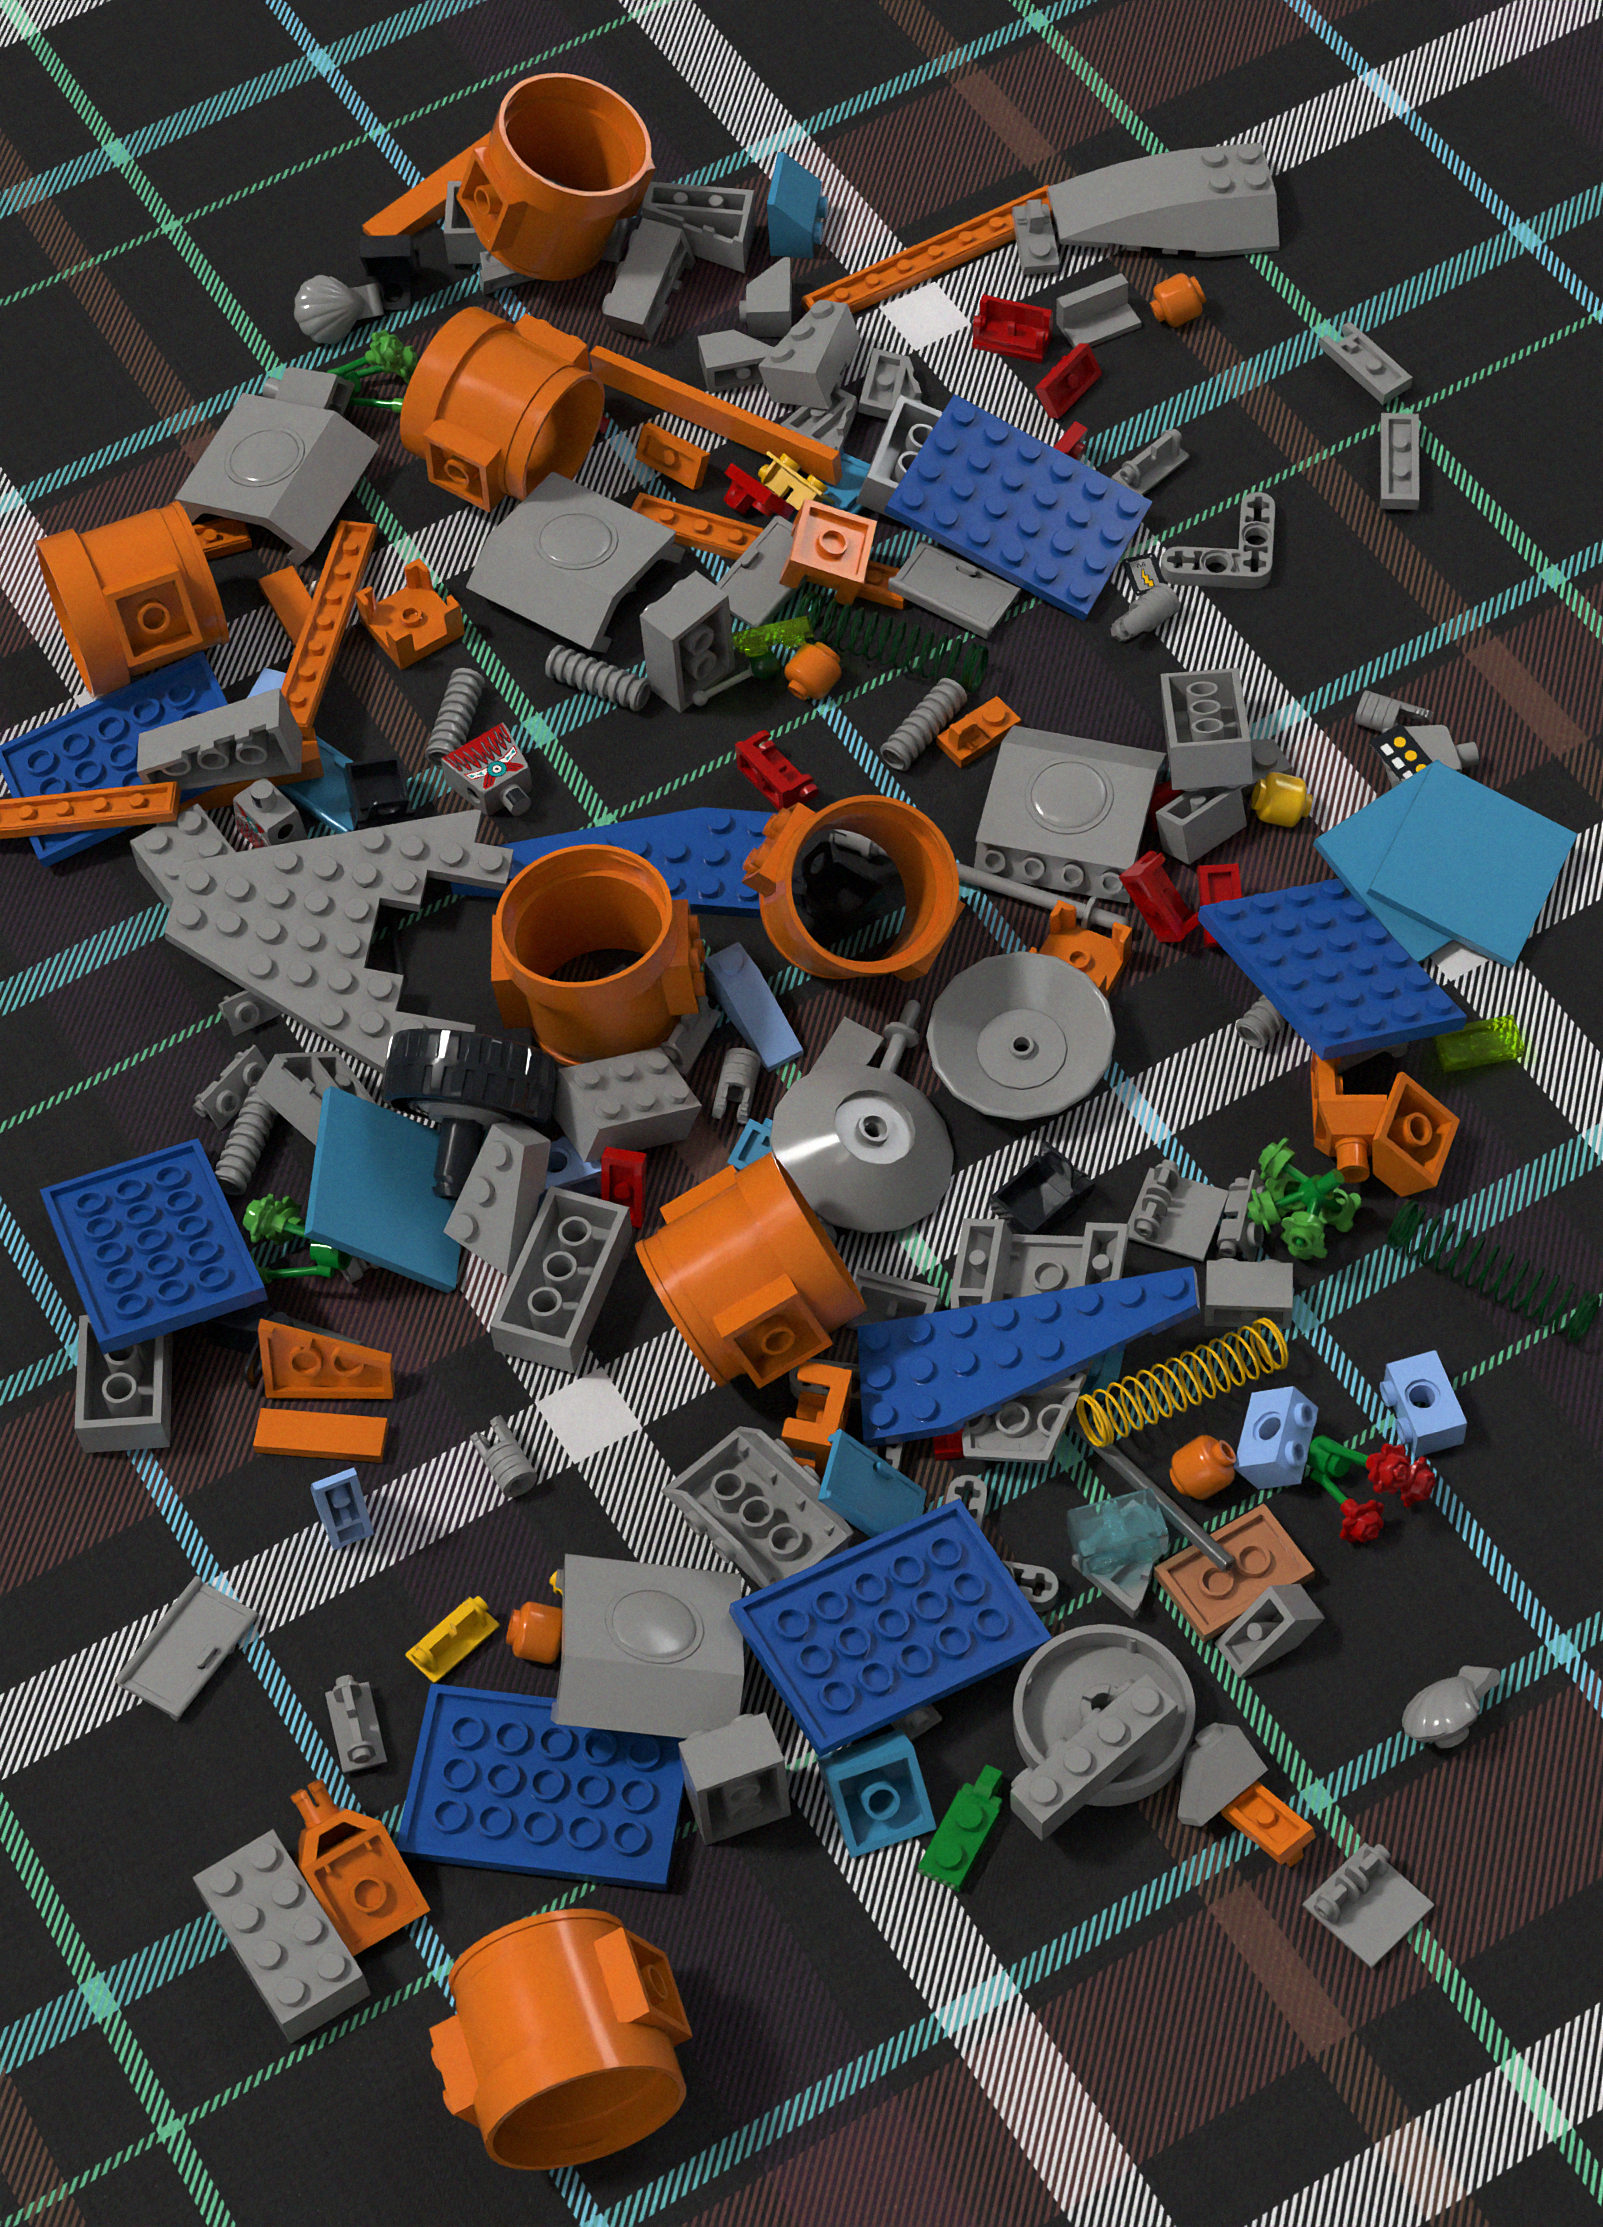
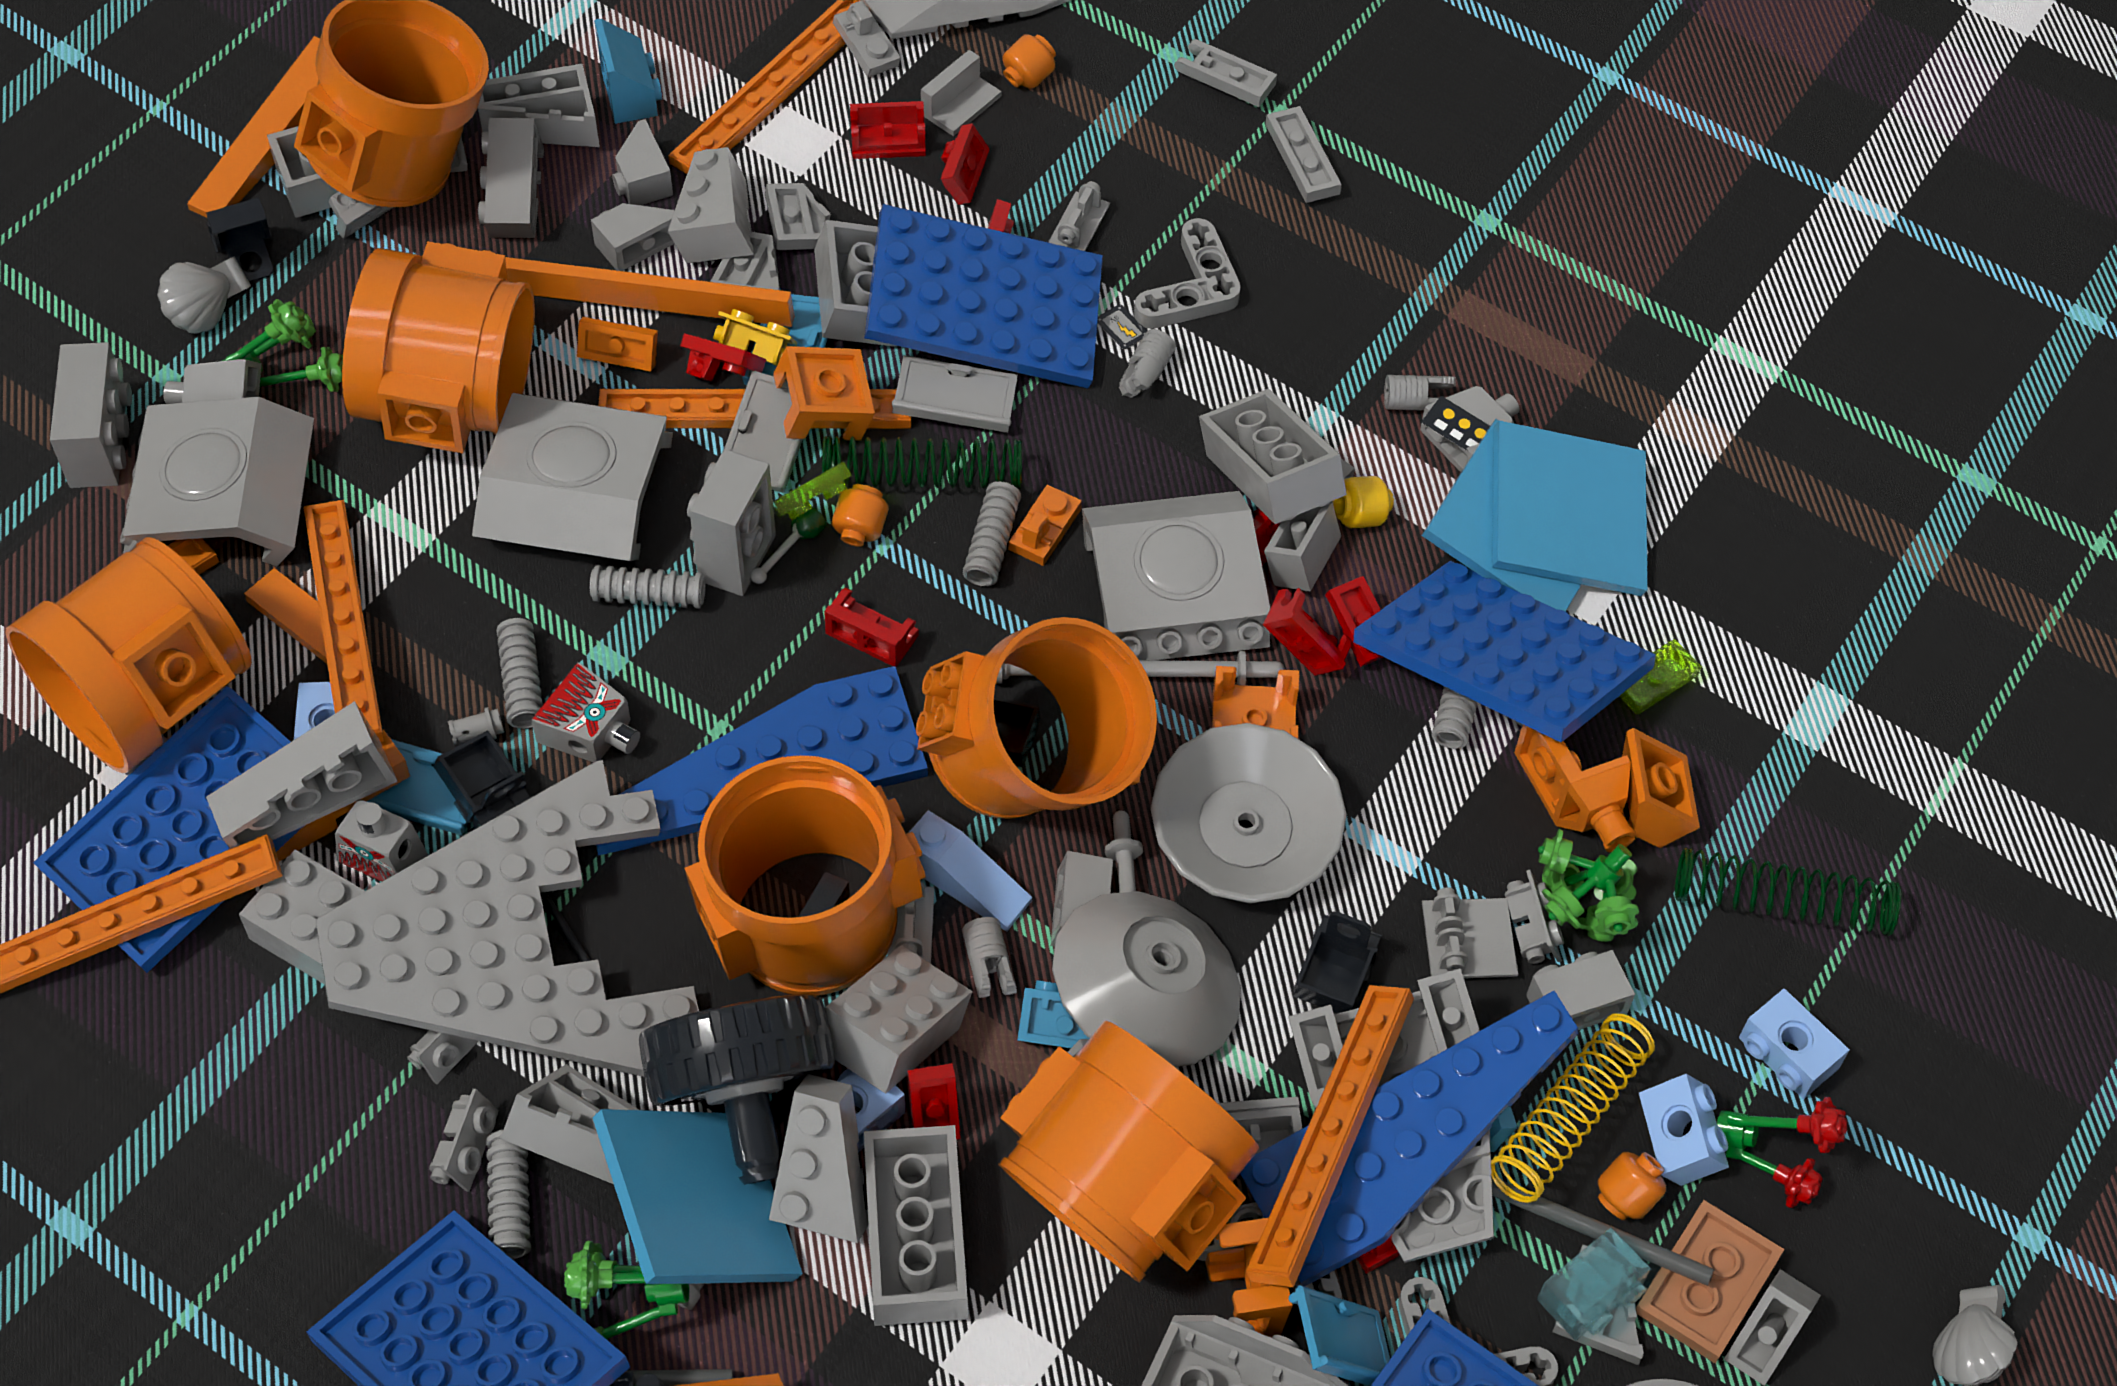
camera: 30 degrees left, 0 degrees up
(194, 387) = (90, 415): none -> light grey brick
(410, 752) = (471, 726): none -> light grey pin
(411, 620) = (425, 584): orange panel -> none
(940, 1321) = (1329, 1137): none -> orange tile

